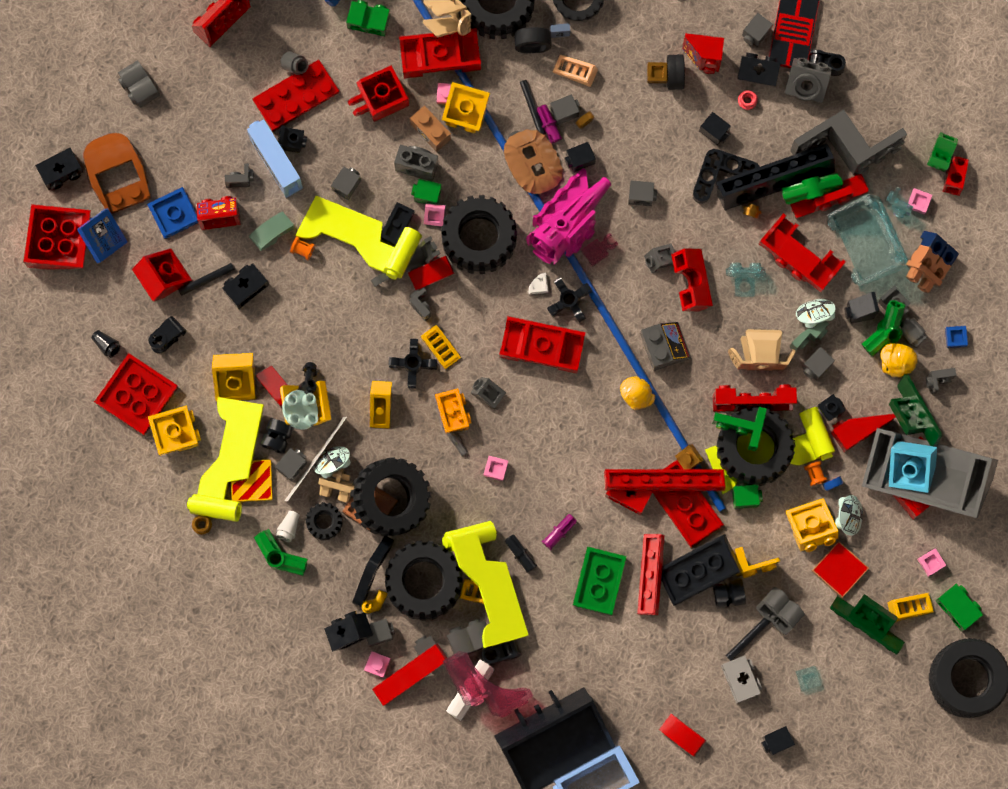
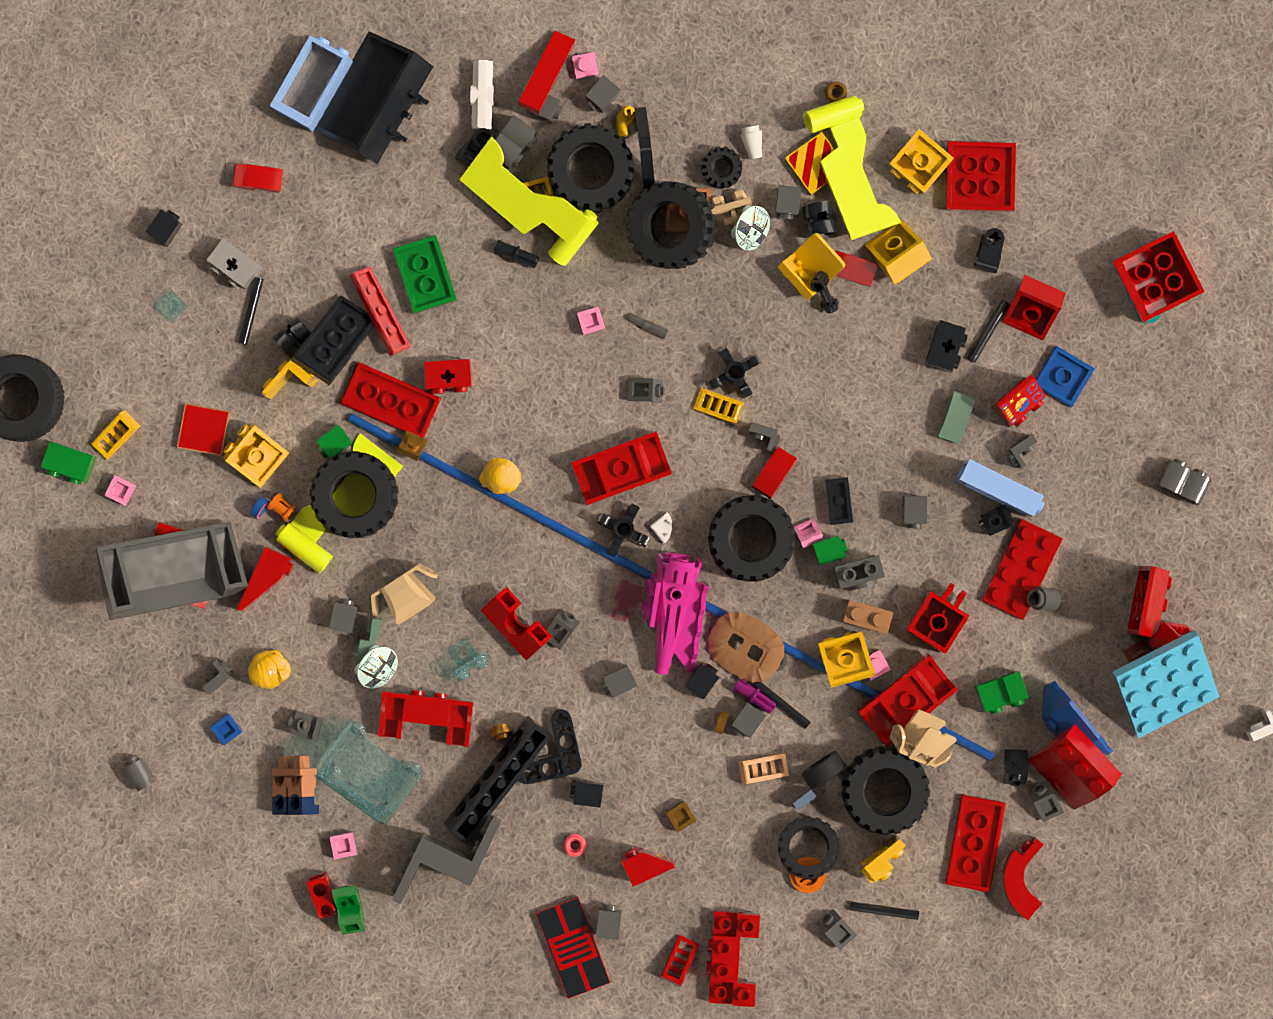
camera: 145 degrees right, 10 degrees up
(49, 169) = (1202, 361): black brick -> none
(102, 235) = (1115, 306): blue tile -> none
(107, 344) = (1042, 206): black cone -> none
(109, 153) = (1166, 394): dark orange slope -> none
(269, 548) = (757, 110): green piece -> none
(300, 409) = (811, 254): light aqua dish -> none
(302, 248) = (915, 418): orange bush -> none
(315, 459) = (768, 221): white sticker -> none
(348, 631) = (630, 75): black brick -> none
(362, 233) = (867, 469): neon yellow door -> none
(380, 404) = (740, 313): yellow slope -> none
(423, 254) = (798, 477): dark grey hinge -> none
(452, 411) = (667, 348): light orange bracket -> none
(474, 687) = (474, 94): clear pink arch -> none
(559, 531) = (492, 298): magenta axle -> none
(664, 345) = (502, 543): dark grey slope -> none
(664, 480) = (421, 407): red tile -> none
(675, 72) = (662, 826): black tyre -> none
(743, 426) = (373, 498): green bracket -> none
(748, 73) = (569, 881): black brick -> none
(780, 610) = (235, 352): dark grey brick -> none
(782, 399) = (356, 559): red piece -> none
(804, 70) = (525, 900): dark grey brick -> none
(812, 188) = (453, 789): green piece -> none
(829, 58) = (521, 931): black piece -> none
(831, 407) = (304, 579): black bracket -> none
(849, 515) = (224, 485): light aqua dish -> none
(850, 189) = (437, 791): red bracket -> none
(862, 308) = (333, 697): slope -> none
(870, 619) = (145, 397): dark green bracket -> none
(887, 329) = (296, 692): green piece -> none
(898, 207) = (357, 825): clear light blue bracket -> none
(912, 466) = (190, 566): medium azure slope -> none
(913, 331) = (271, 707): dark grey brick -> none
(913, 413) = (221, 621): dark green bracket -> none

